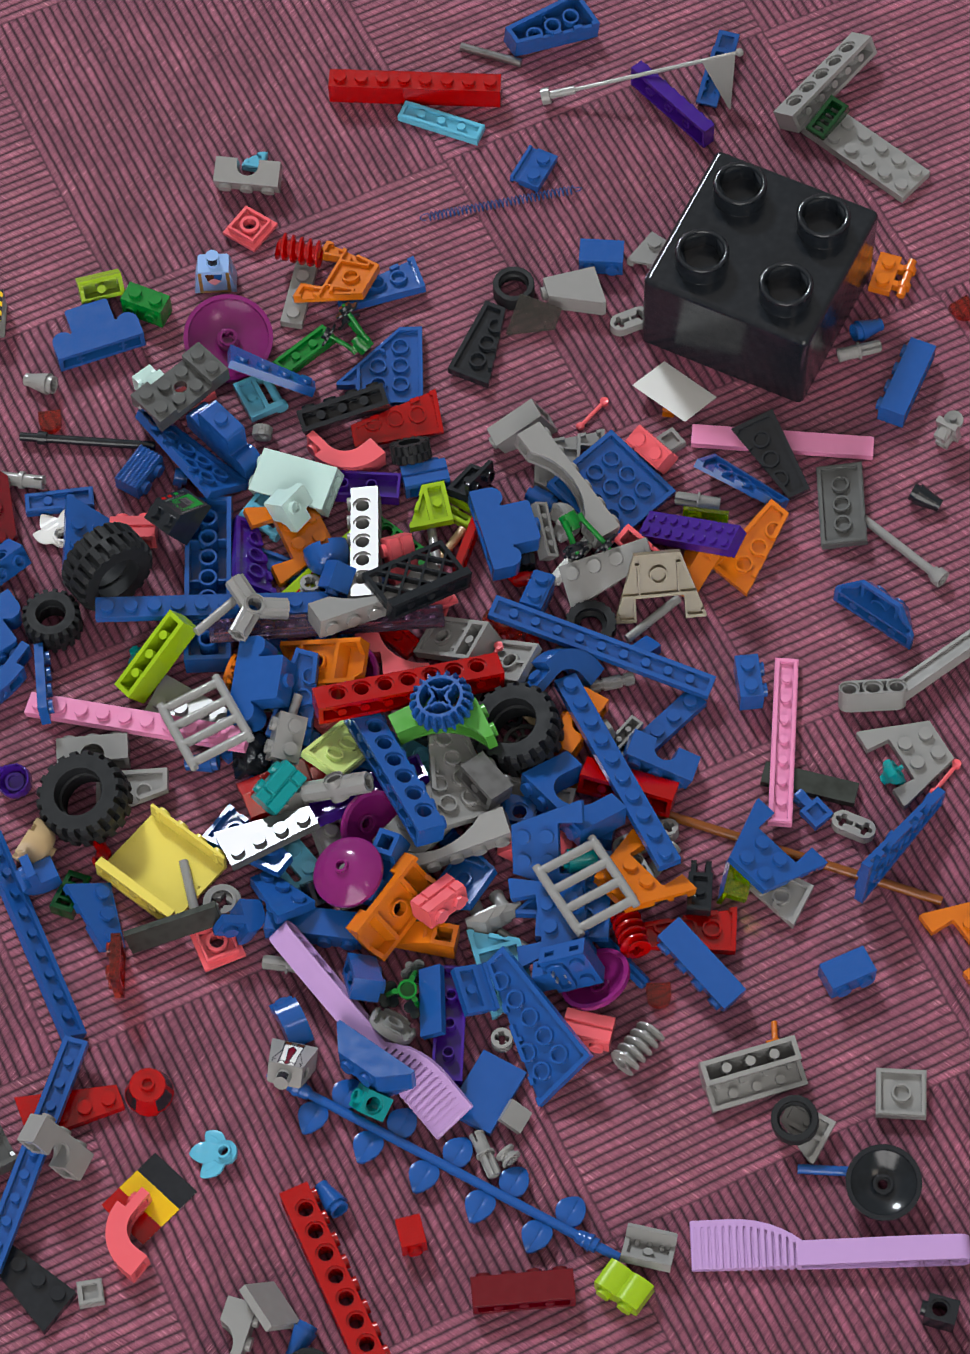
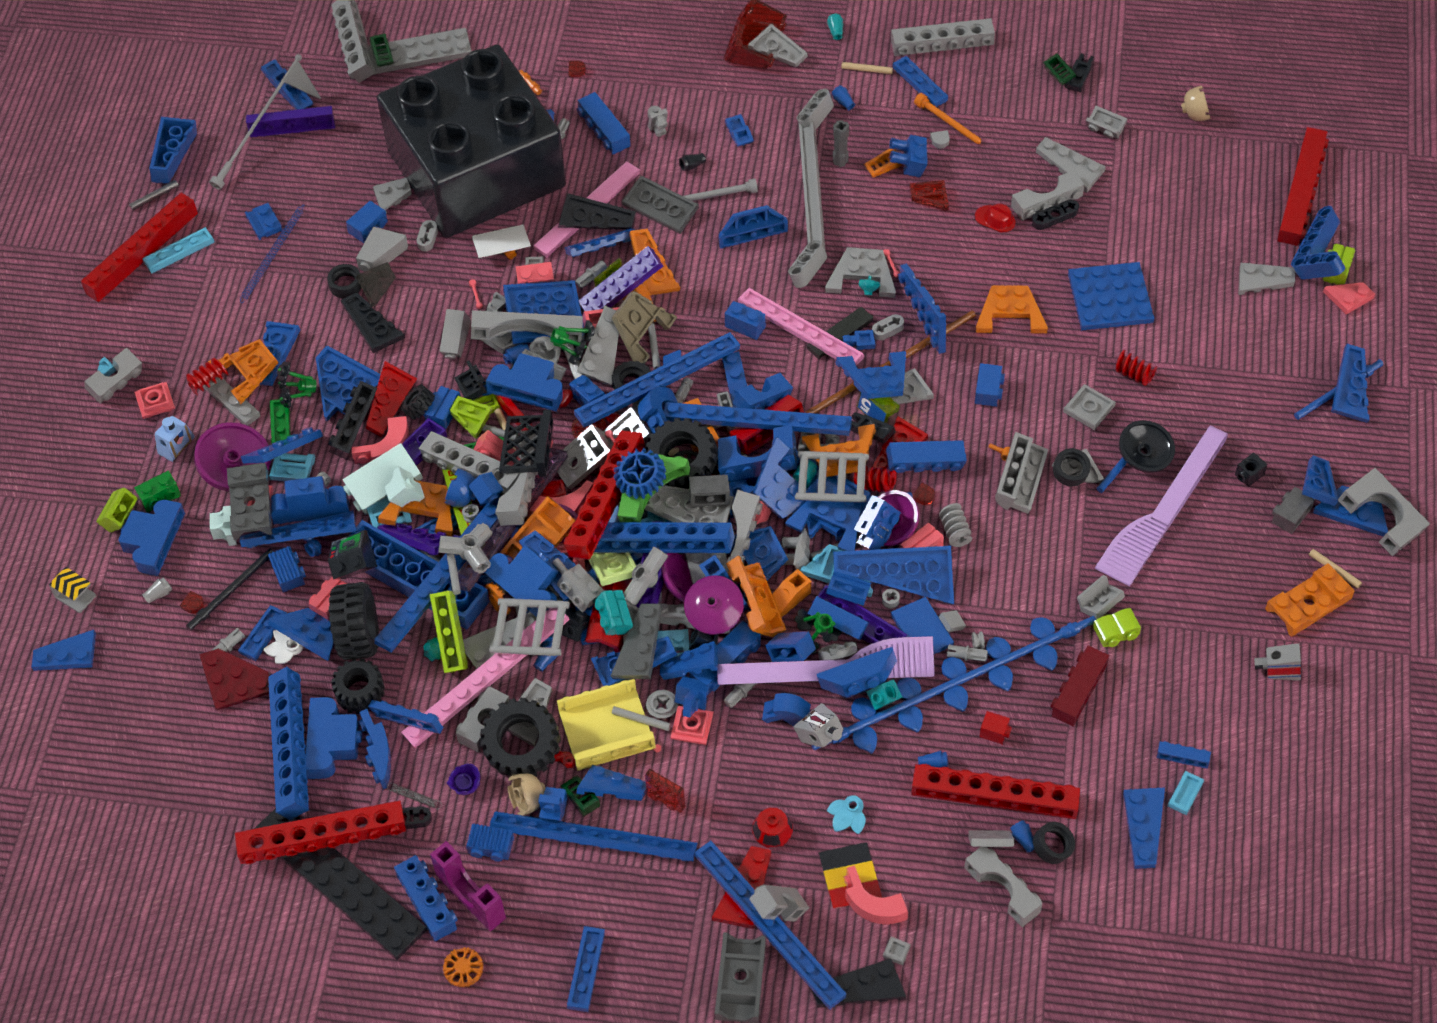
camera: 55 degrees left, 5 degrees down
(172, 927) = (663, 737): pearl dark grey tile -> none
(439, 901) = (773, 567): coral brick -> none

